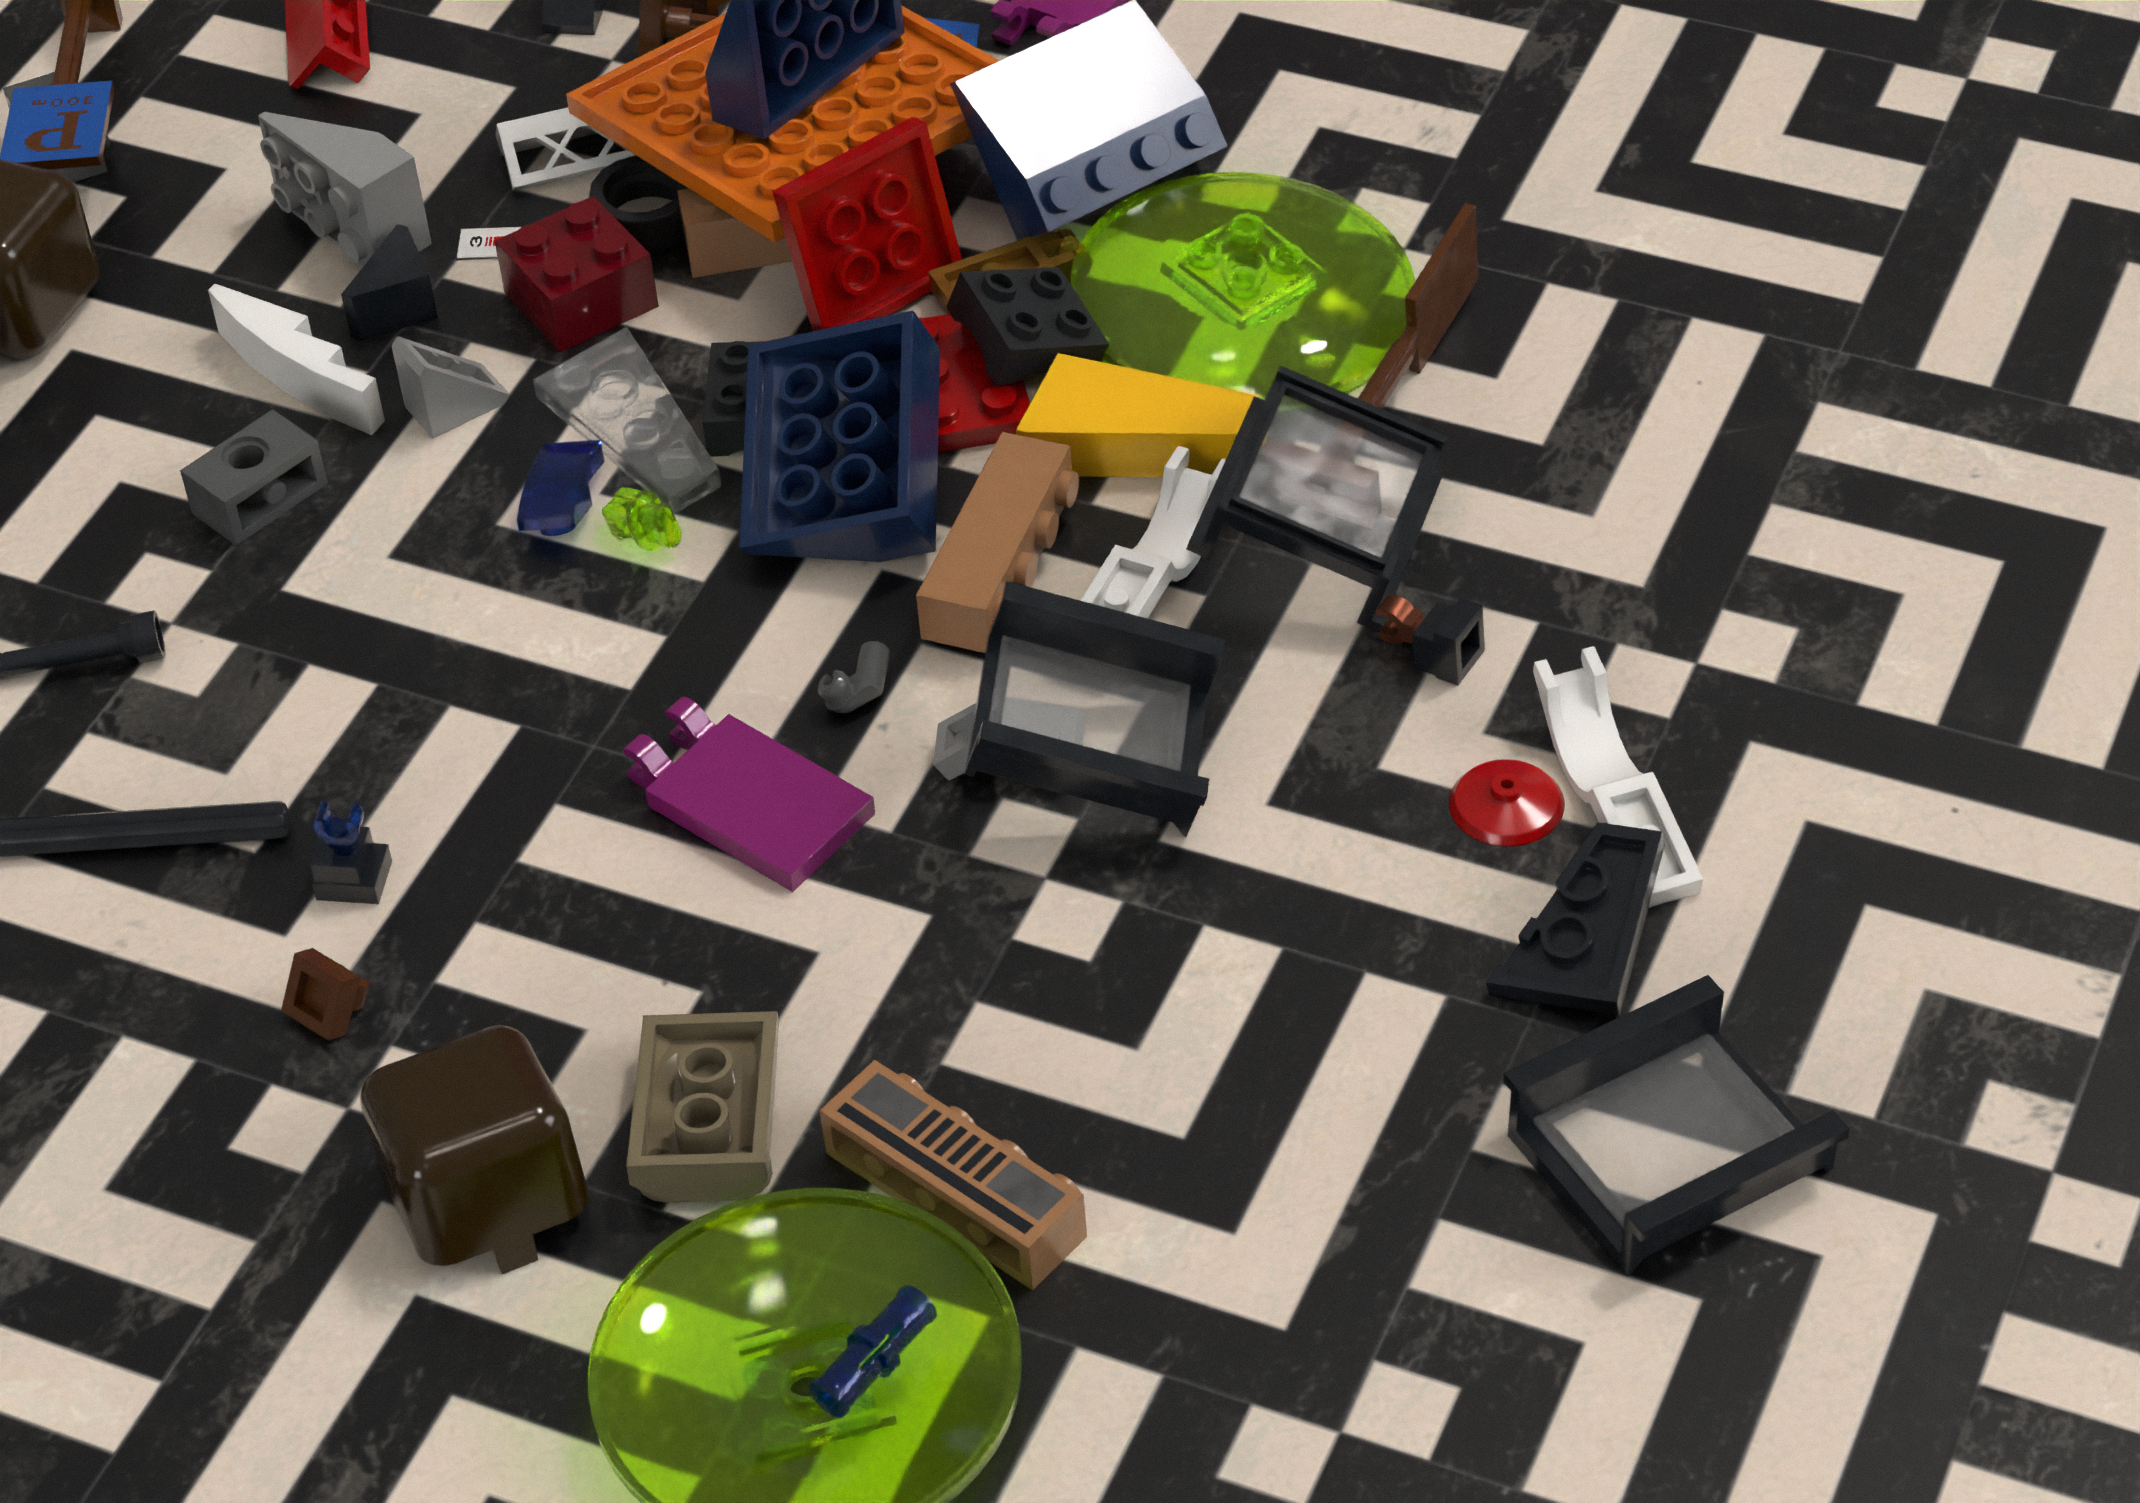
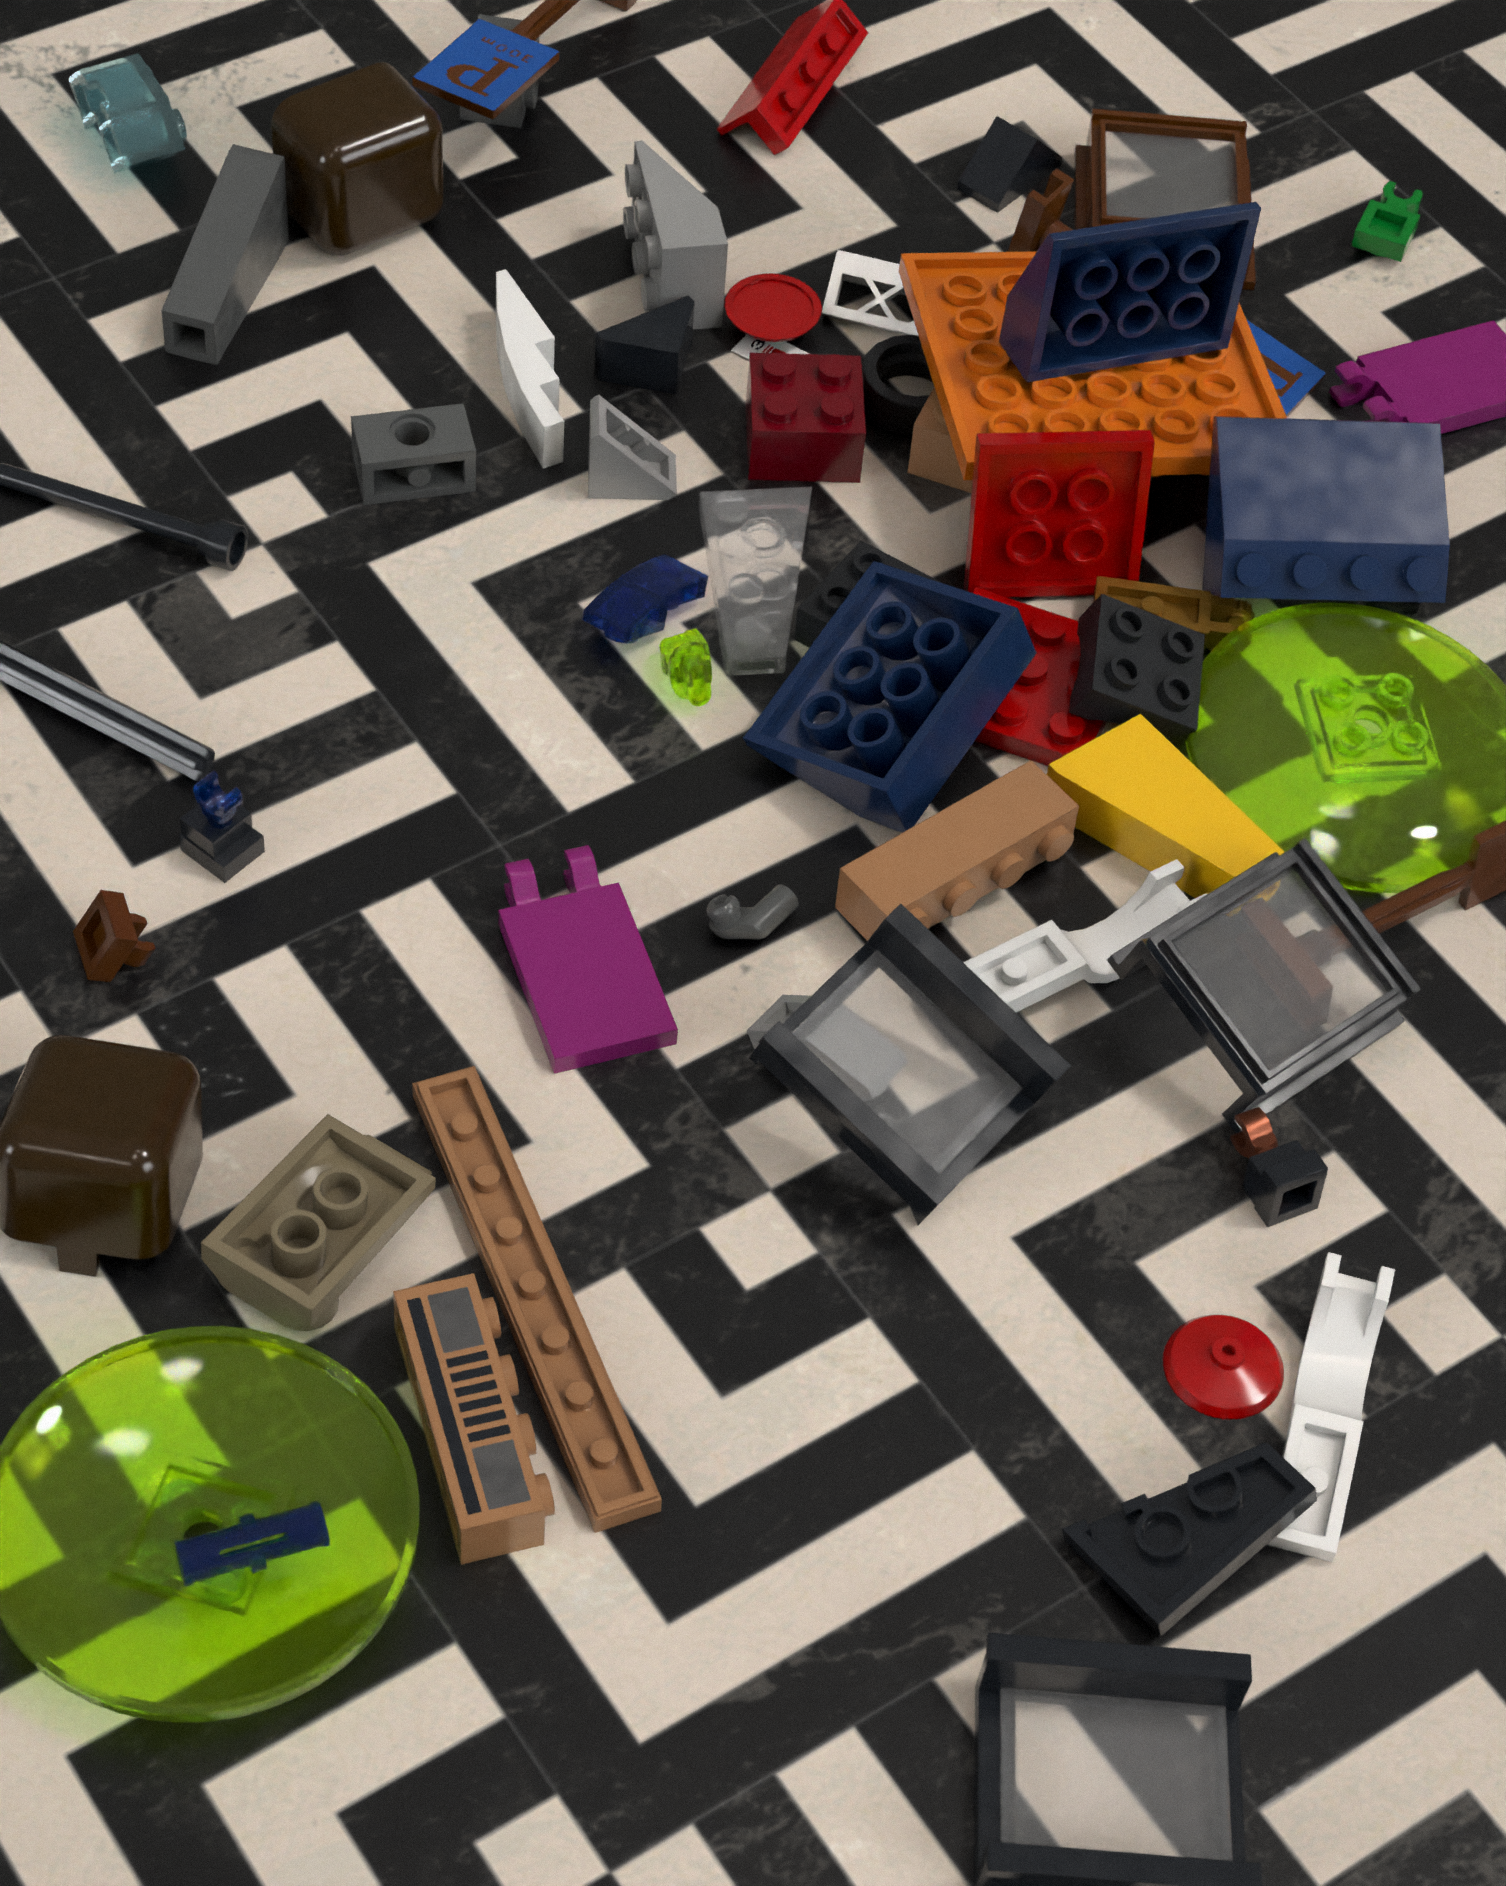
camera: 25 degrees right, 5 degrees up
(470, 202) = (773, 307): none -> red piece
(868, 1029) = (537, 1301): none -> medium nougat tile

